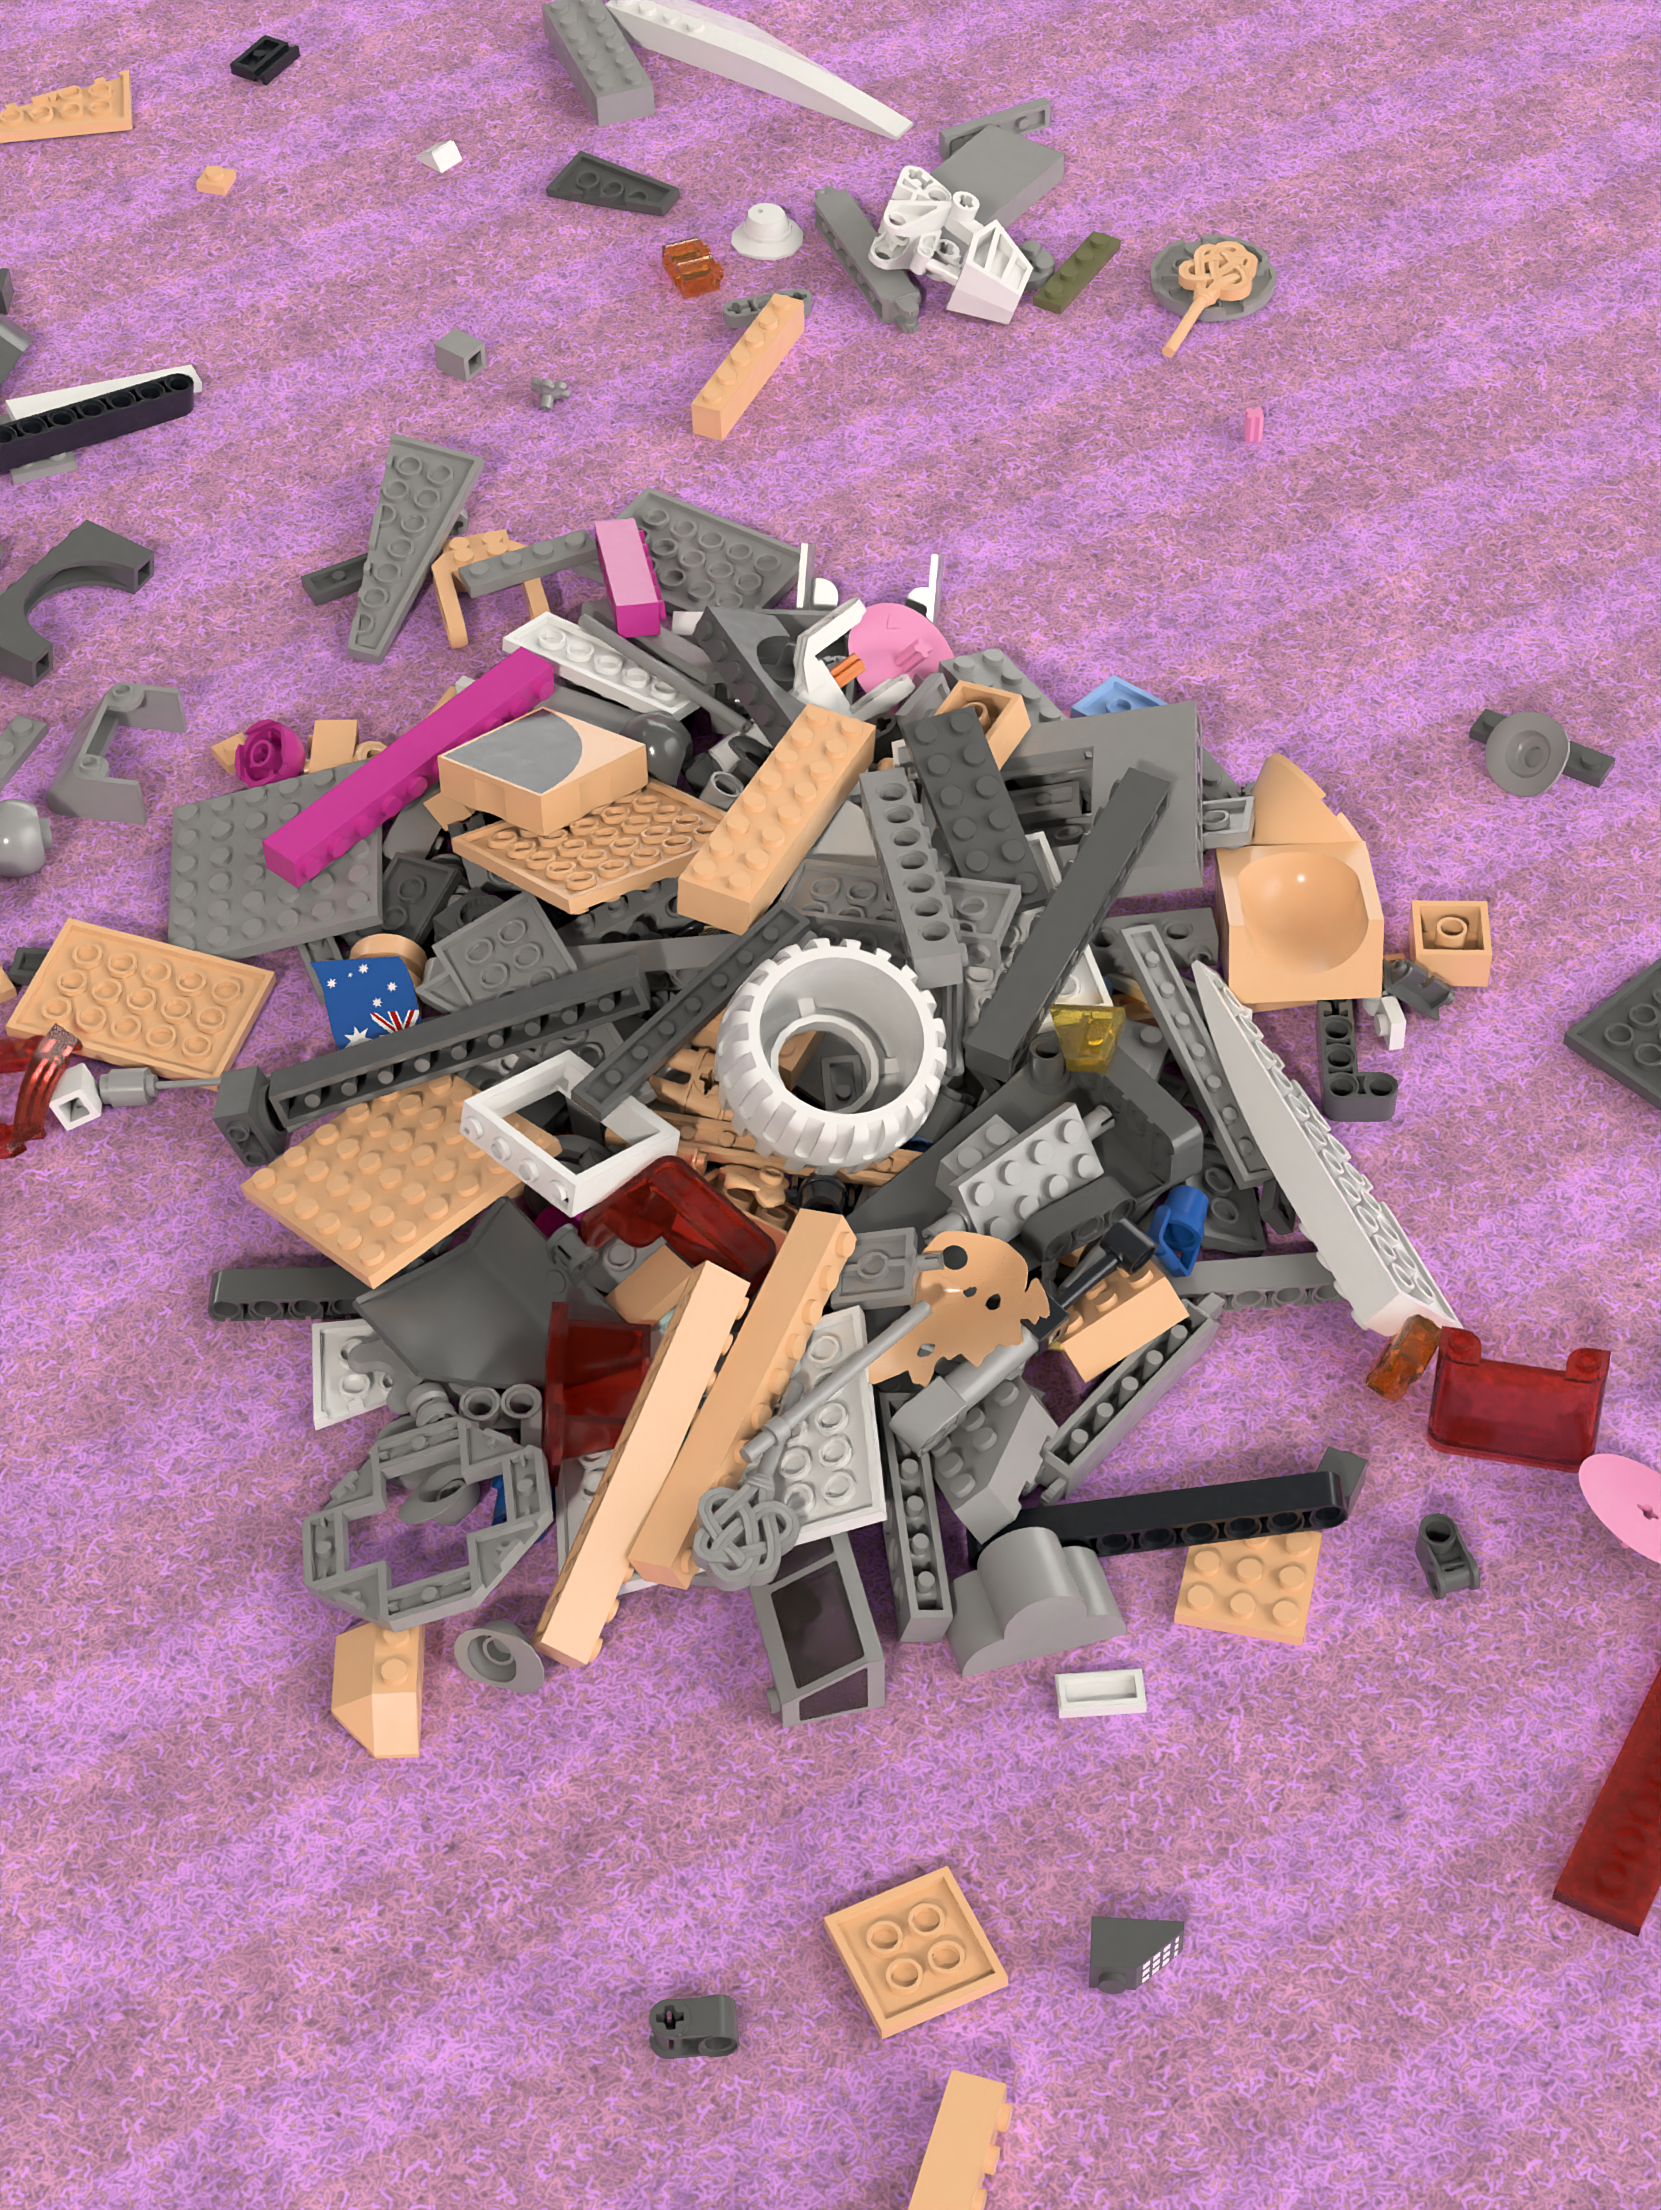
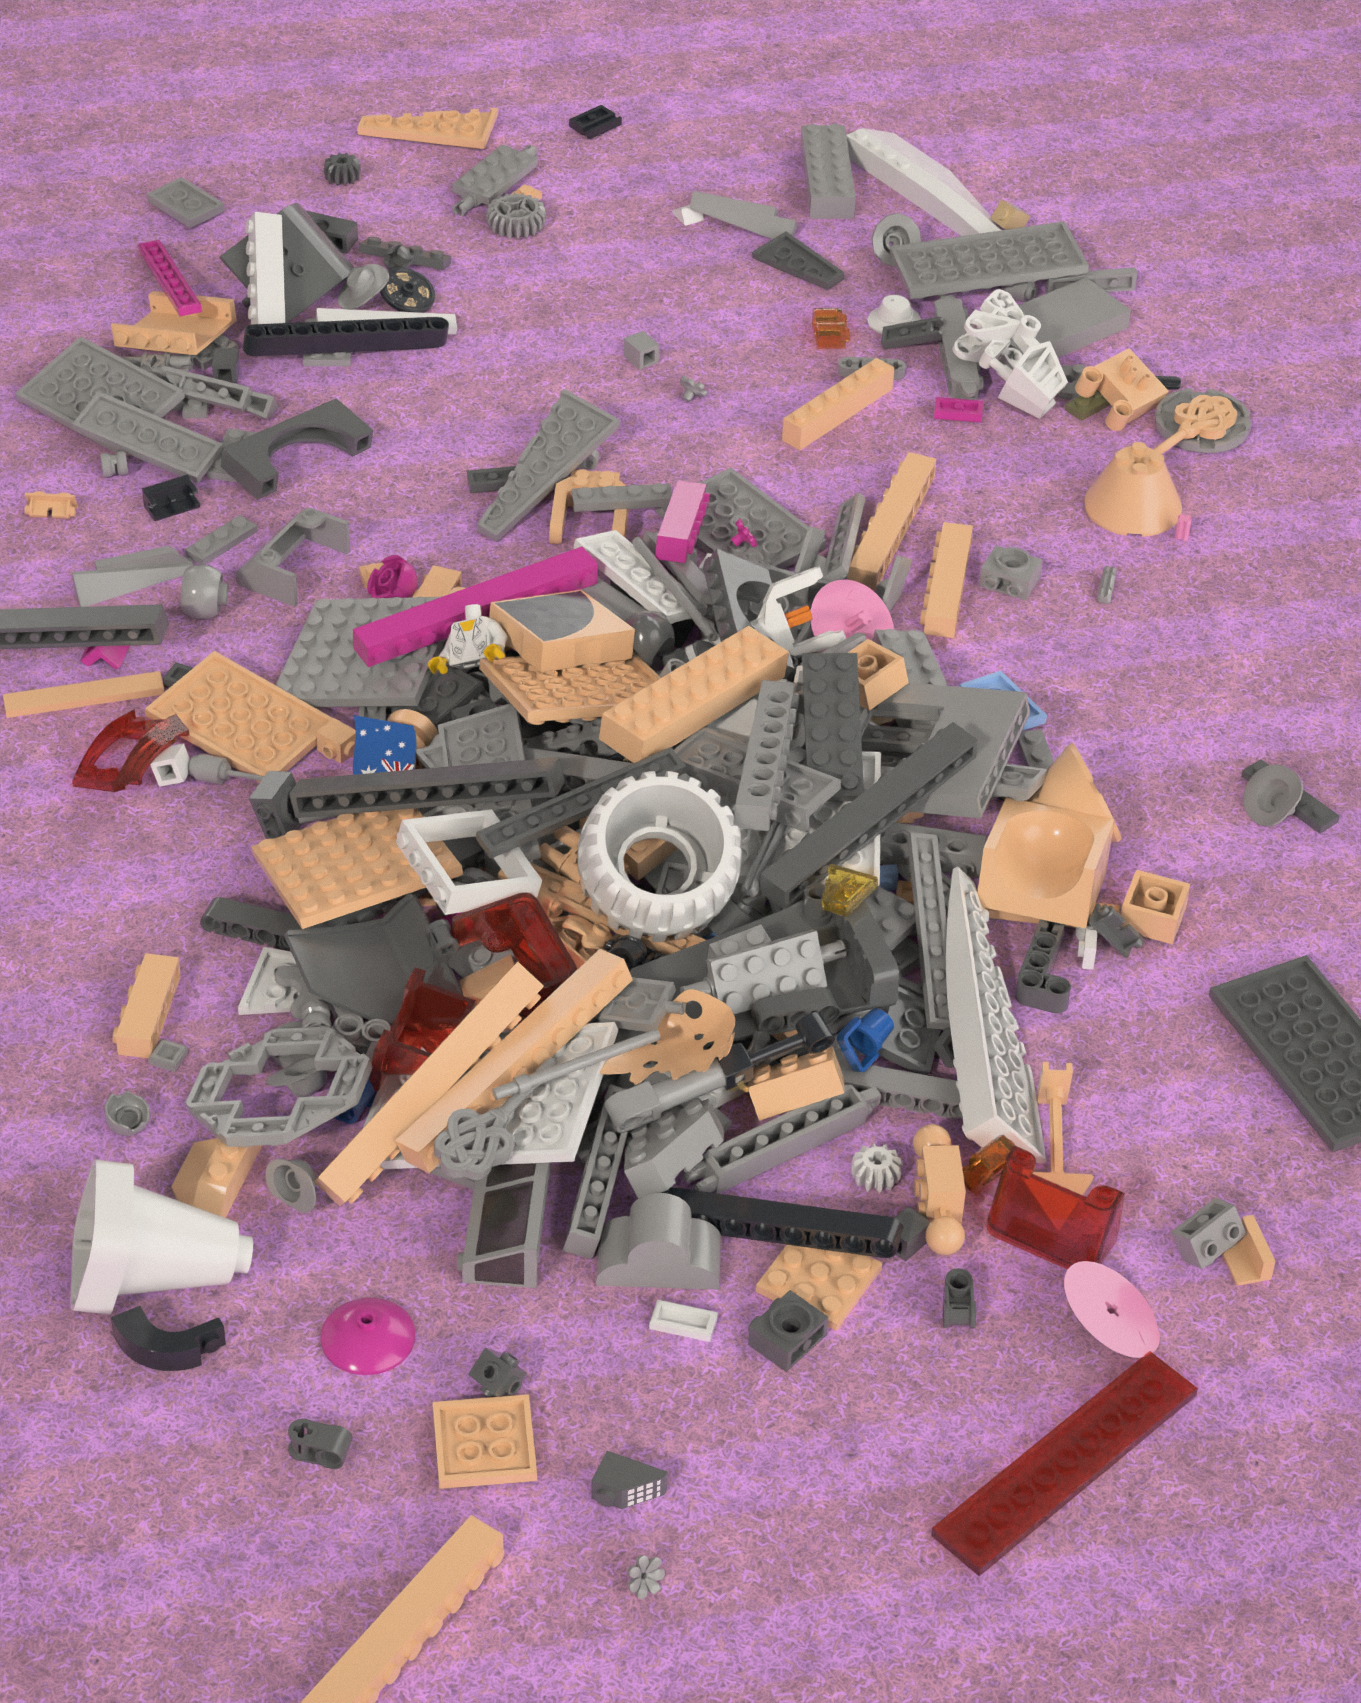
camera: 15 degrees right, 5 degrees down
(52, 355) = (362, 285): none -> light grey hat
(87, 301) = (402, 256): none -> dark grey plate
(114, 347) = (408, 291): none -> black shield
(163, 164) = (493, 176): none -> light grey plate
(186, 1455) = (147, 1005): none -> light nougat brick
(215, 210) = (516, 215): none -> light grey gear
(224, 1622) = (126, 1114): none -> light grey hair
(242, 1517) = (168, 1055): none -> light grey tile
(288, 1000) = (336, 740): none -> light nougat brick
(336, 1810) = (146, 1242): none -> white cone
(416, 1955) = (162, 1348): none -> black arch
(429, 818) = (471, 641): none -> white torso
(515, 140) = (747, 215): none -> light grey wedge
(694, 1865) = (371, 1346): none -> dark pink dish
(708, 575) = (743, 535): none -> dark pink plant
(737, 126) = (894, 229): none -> light grey hat
(801, 249) = (911, 333): none -> dark grey hinge
(838, 544) = (843, 538): none -> light grey plate
(857, 66) = (1009, 216): none -> tan brick
(857, 129) = (988, 260): none -> light grey plate
(884, 508) = (891, 520): none -> light nougat brick
(896, 1849) = (497, 1373): none -> dark grey brick
(903, 337) = (958, 409): none -> dark pink plate
(907, 154) = (1021, 291): none -> light grey brick
(991, 568) = (947, 580): none -> light nougat brick
(1066, 538) = (1010, 572): none -> light grey brick
(1104, 257) = (1126, 386): none -> light nougat piece
(1175, 396) = (1134, 494): none -> light nougat cone
(1191, 525) = (1106, 585): none -> light grey axle
(1212, 2079) = (644, 1576): none -> light grey plant
(1238, 1646) = (787, 1330): none -> dark grey brick
(1258, 1402) = (876, 1167): none -> white gear
(1358, 1409) = (940, 1188): none -> light nougat brick
(1437, 1229) = (1054, 1090): none -> light nougat piece

